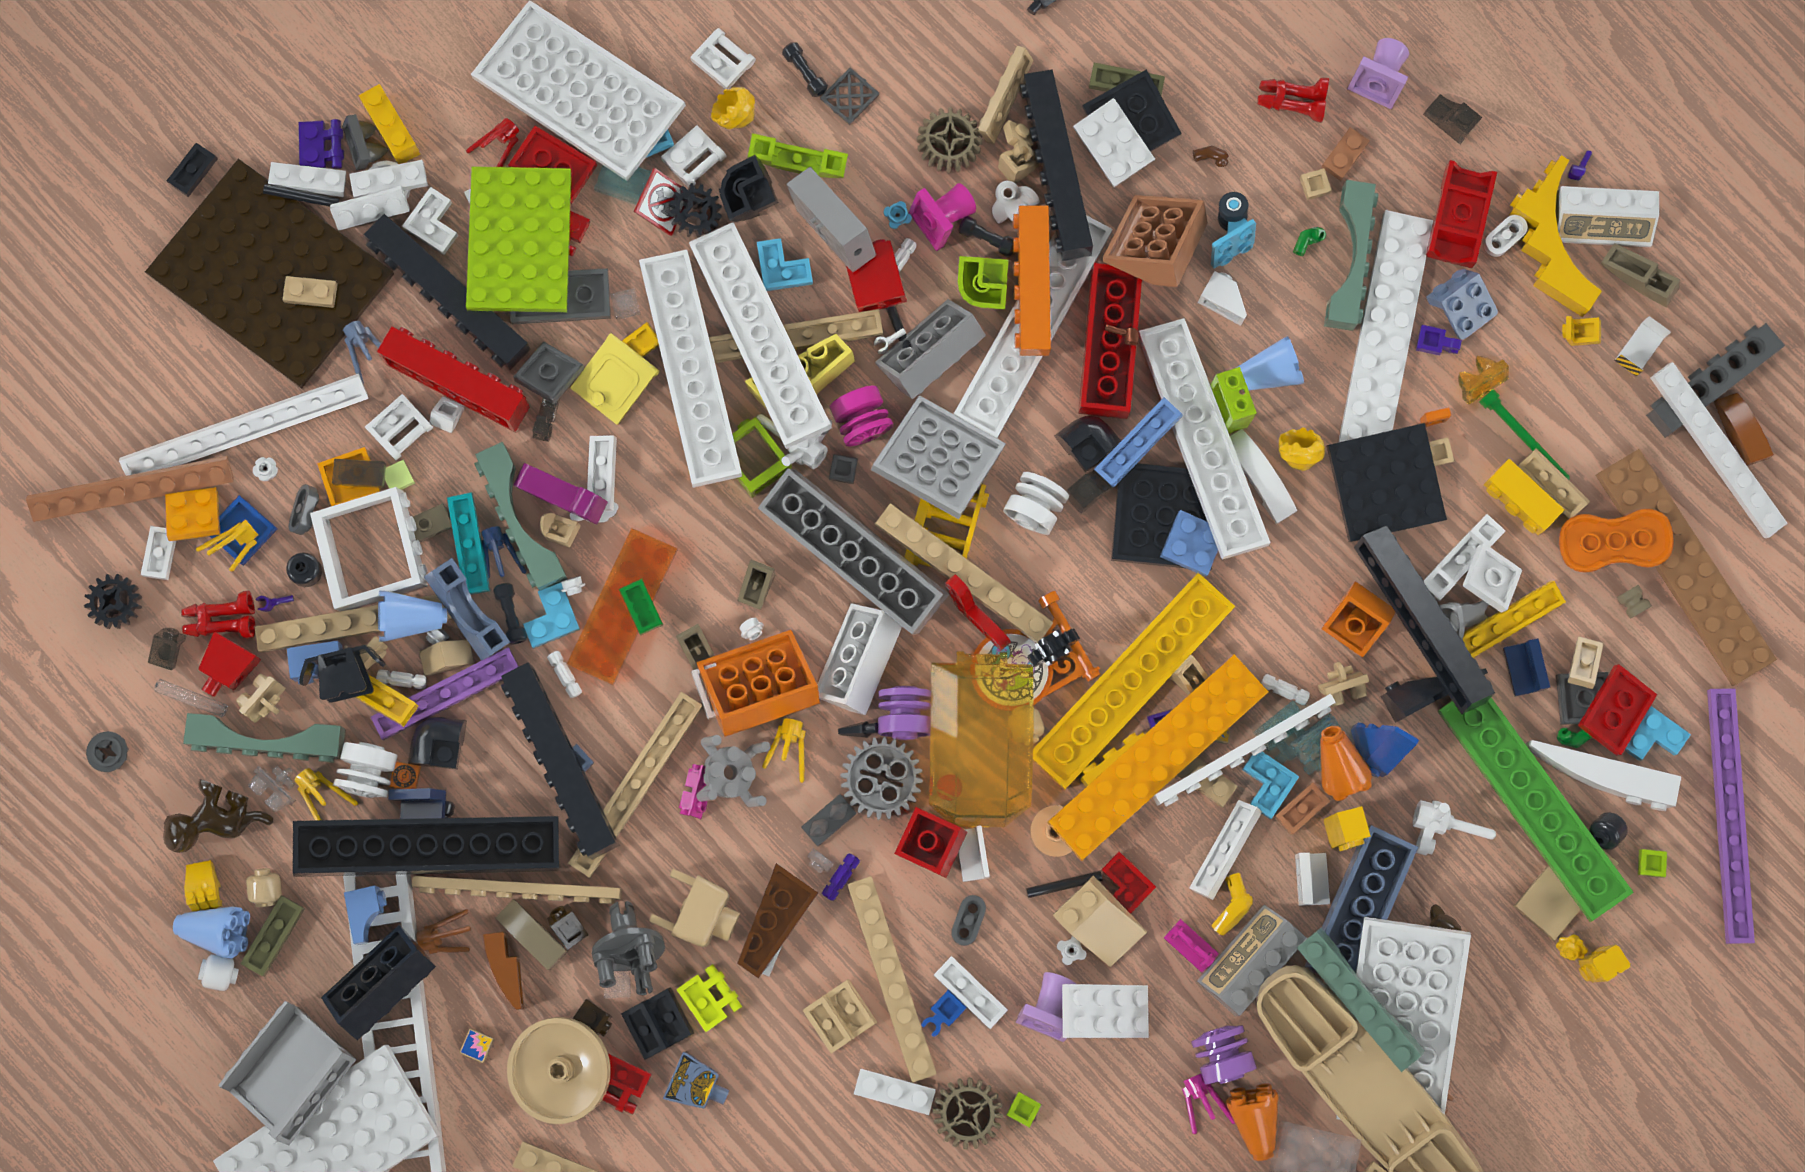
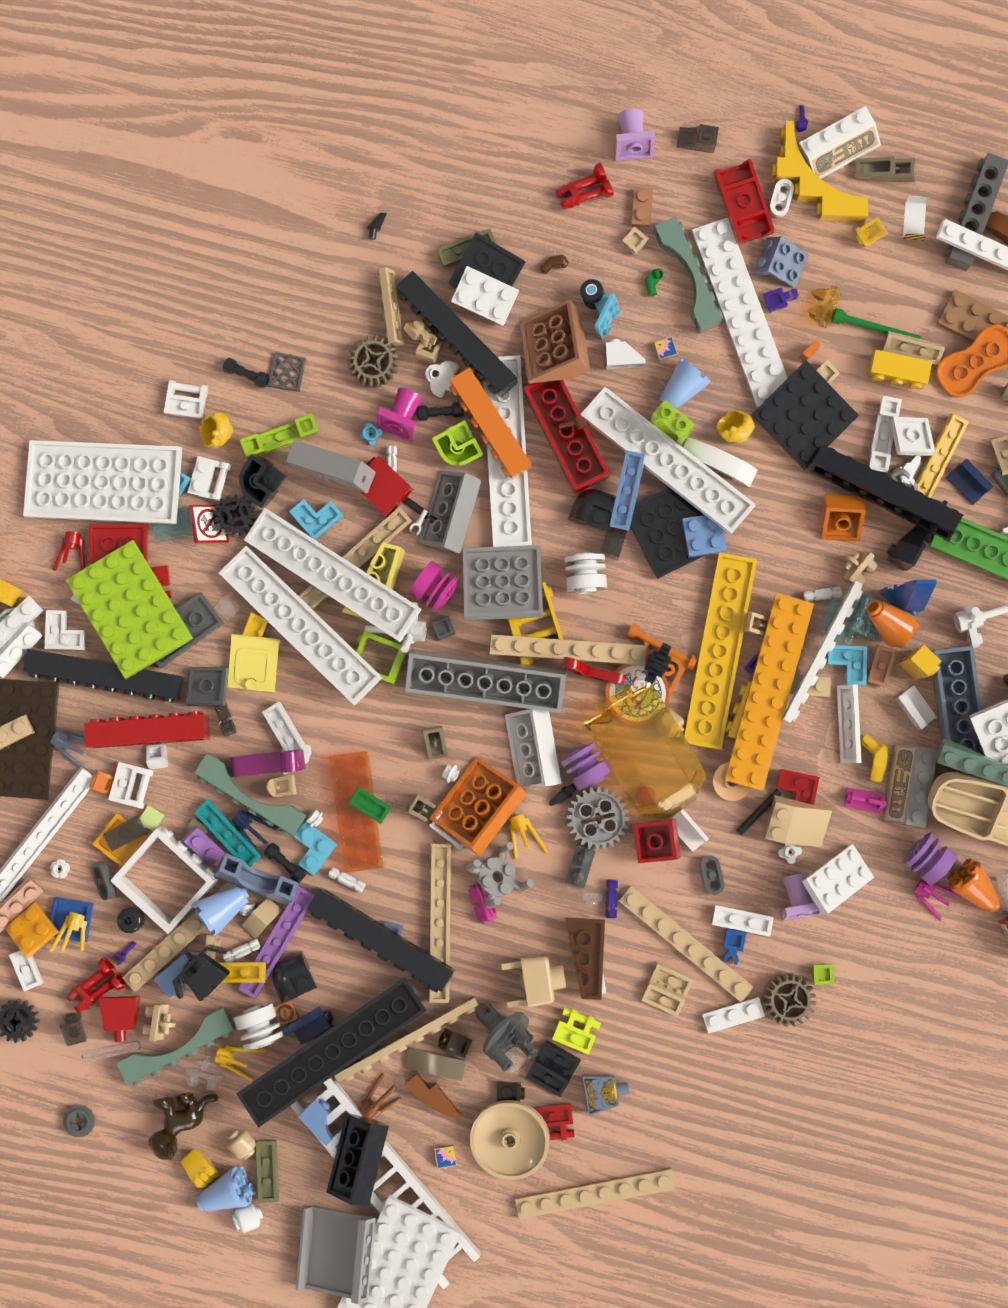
camera: 25 degrees left, 5 degrees up
(370, 404) = (102, 782): none -> orange tile
(433, 539) = (203, 845): none -> medium lavender plate
(1276, 319) = (665, 348): none -> tile

